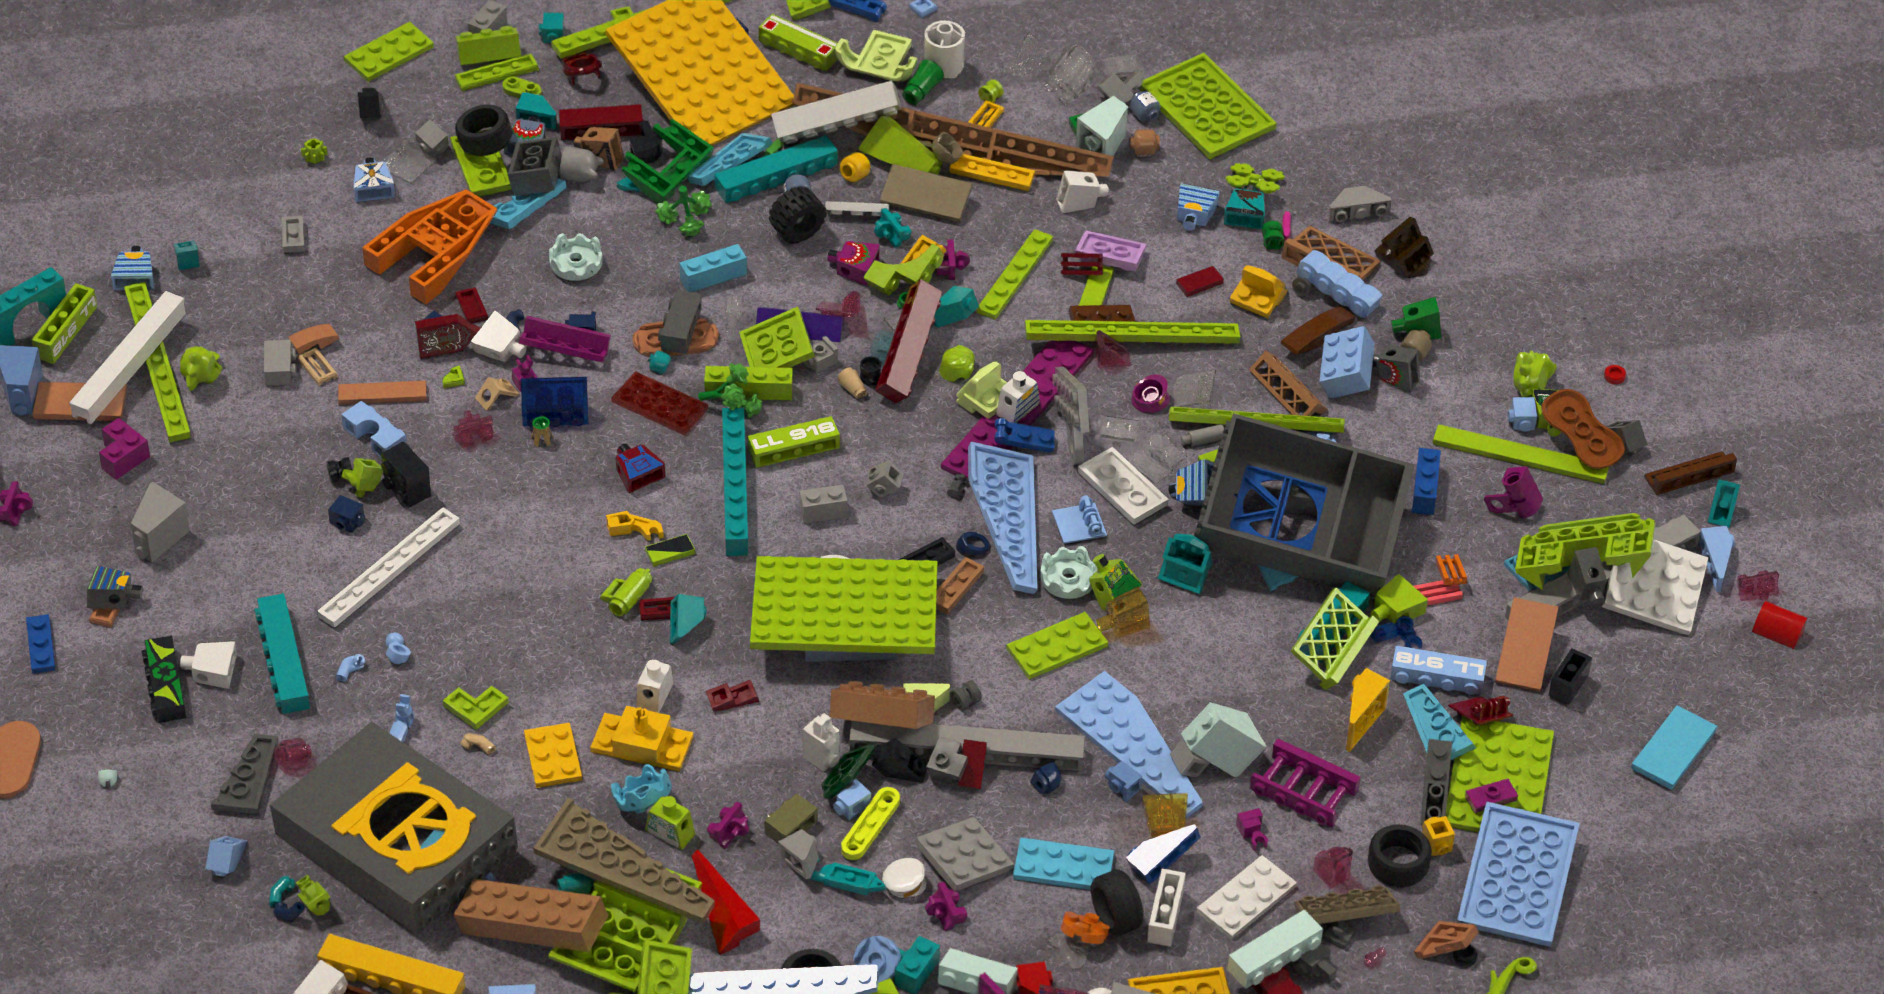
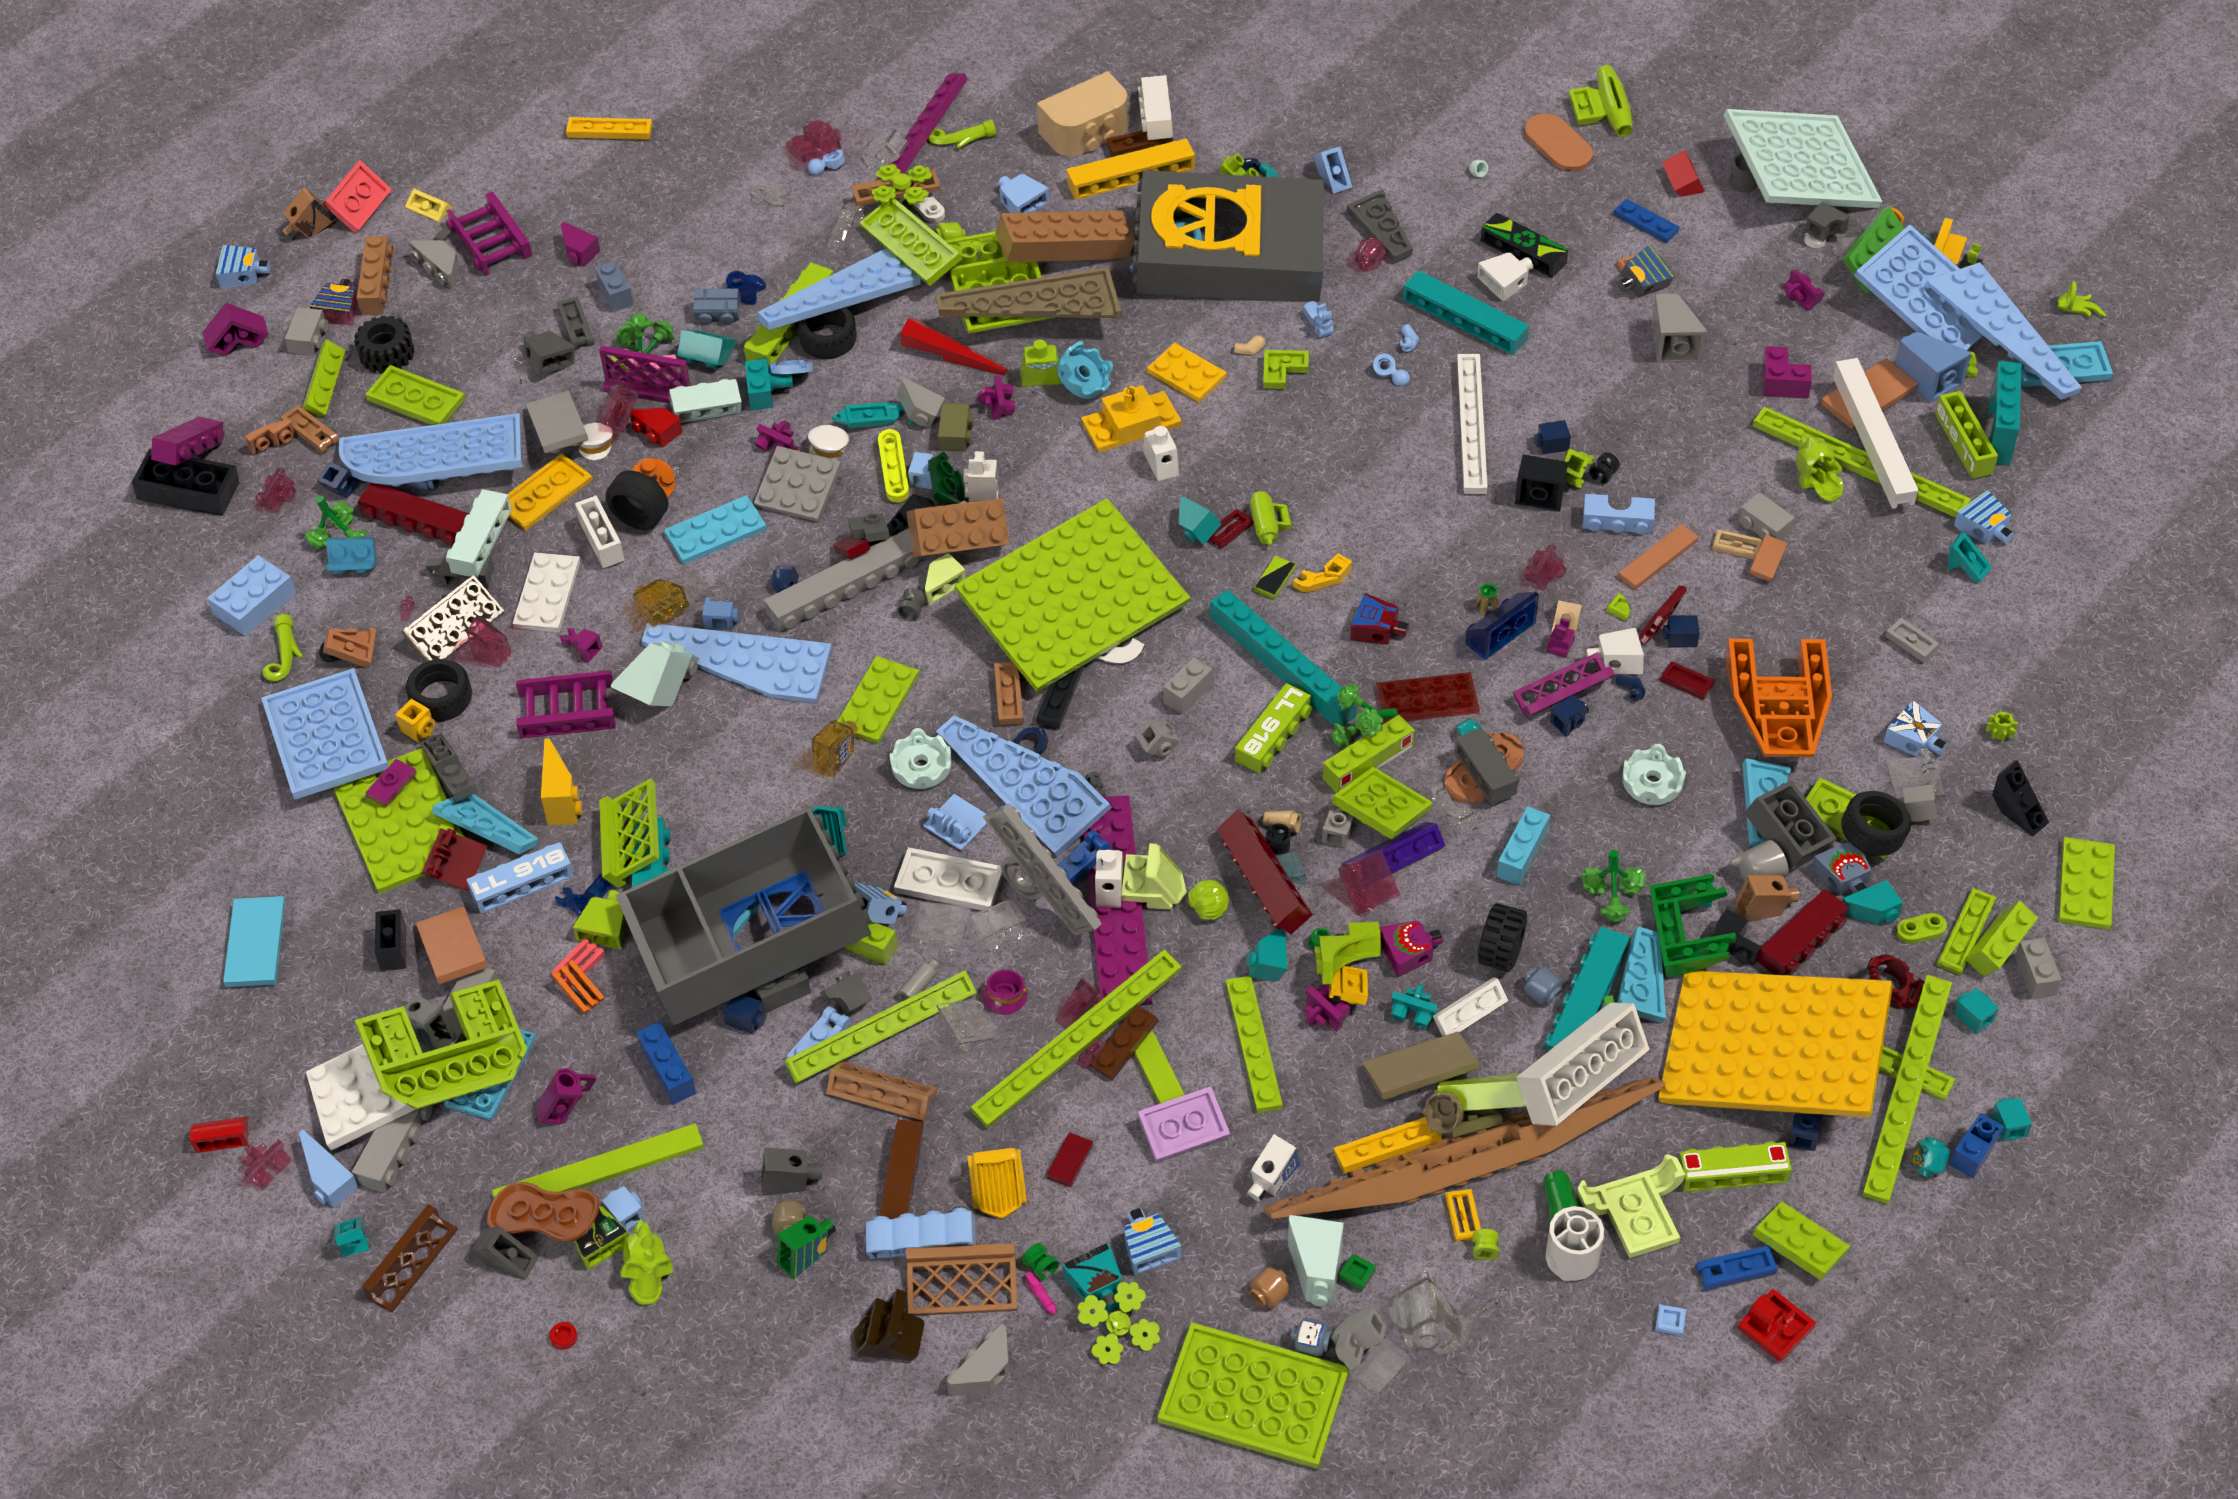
camera: 145 degrees right, 5 degrees up
(726, 698) = (1100, 489): dark red slope -> none
(855, 167) = (1518, 1050): yellow head -> none
(1065, 263) = (1191, 1083): dark red tile -> none
(1111, 579) = (869, 766): torso -> none
(1161, 852) = (638, 567): slope -> none
(1347, 362) = (837, 1137): light blue brick -> none

